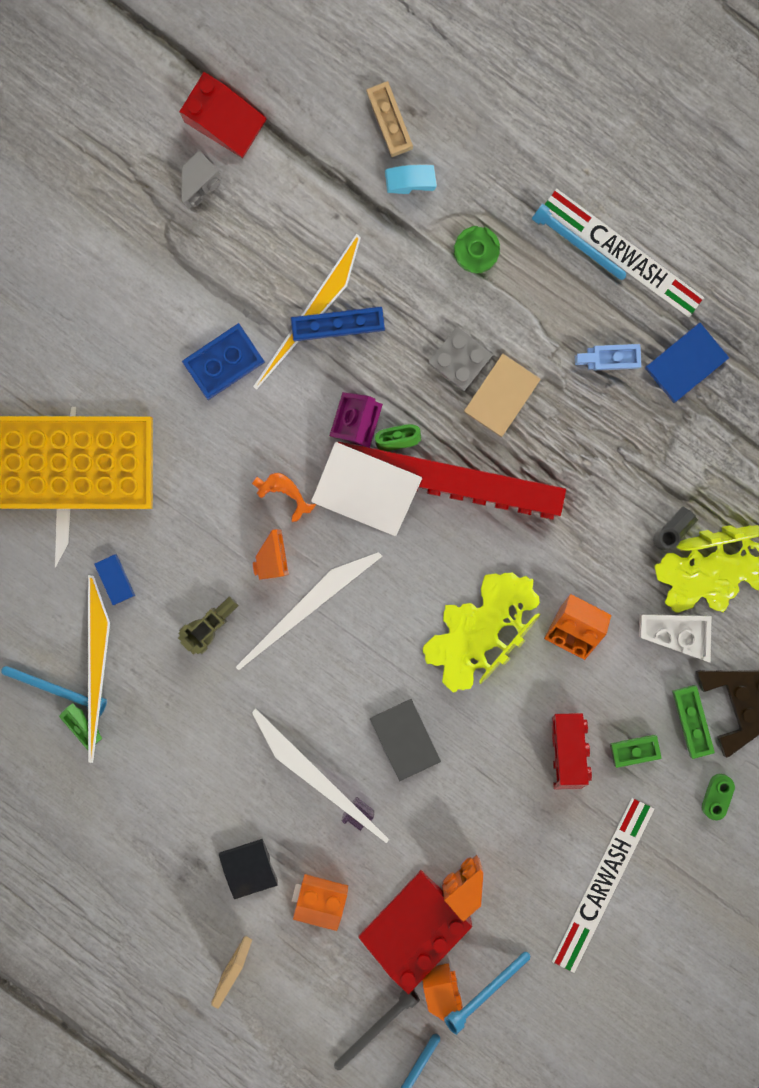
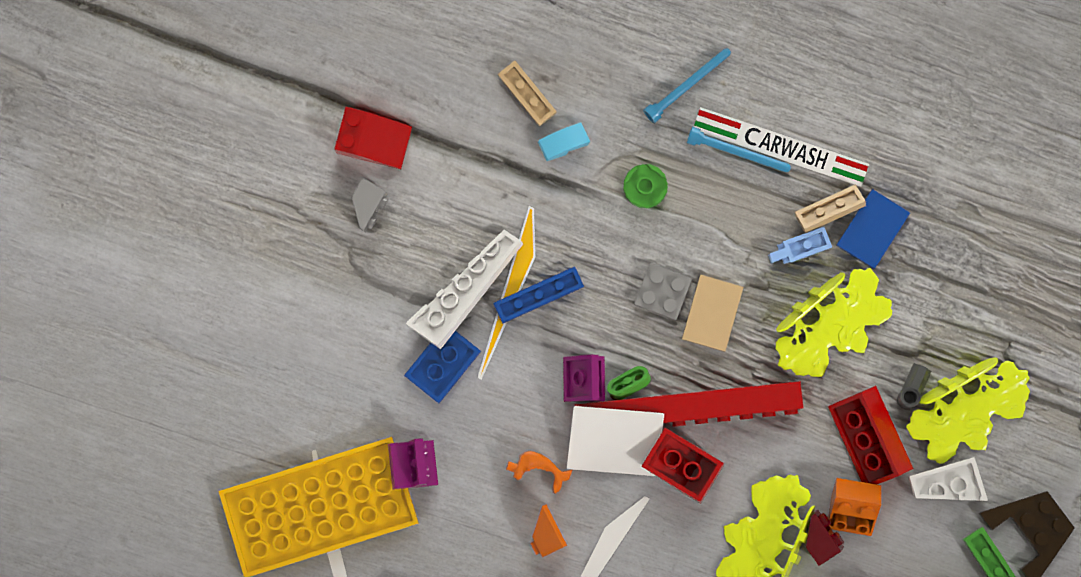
camera: 15 degrees left, 5 degrees down
(162, 449) = (413, 464): none -> magenta bracket
(237, 314) = (451, 306): none -> white wing
(424, 534) = (683, 465): none -> red slope
(510, 177) = (655, 111): none -> dark azure piece
(536, 650) = (821, 539): none -> dark red slope
(616, 565) = (870, 437): none -> red slope
(622, 445) = (838, 325): none -> neon yellow plant
(652, 328) = (830, 208): none -> tan plate

